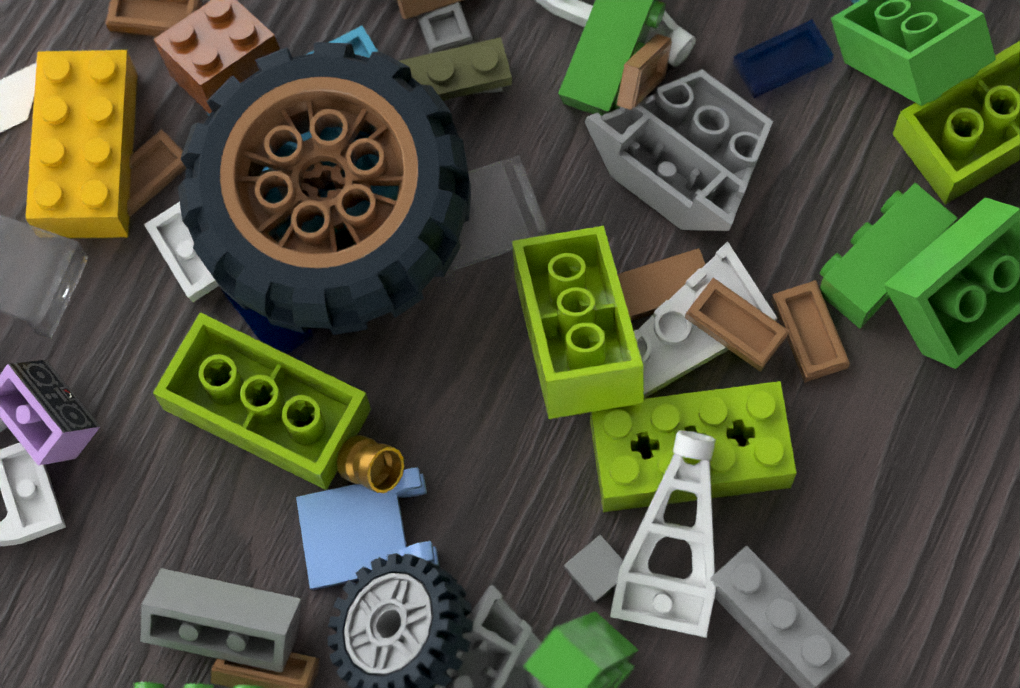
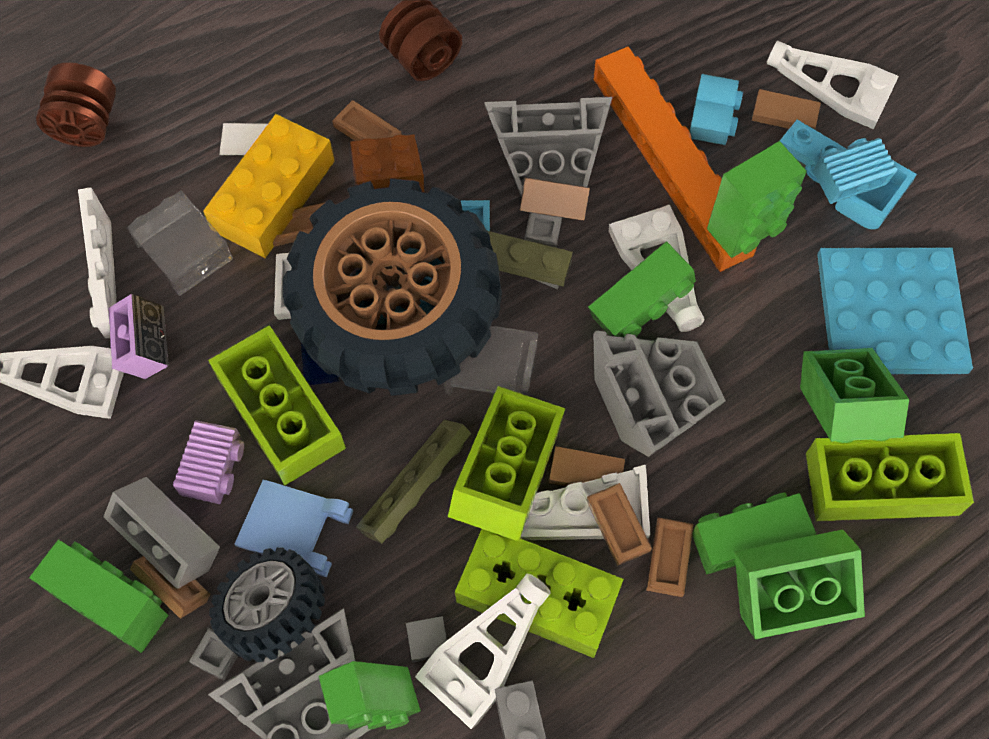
camera: 25 degrees right, 5 degrees down
(222, 511) = (209, 462): none -> lavender brick
(370, 464) = (318, 483): pearl gold wheel -> none
(475, 402) = (413, 481): none -> olive plate
(644, 71) = (653, 321): medium nougat tile -> none
(783, 58) = (758, 363): clear blue tile -> none

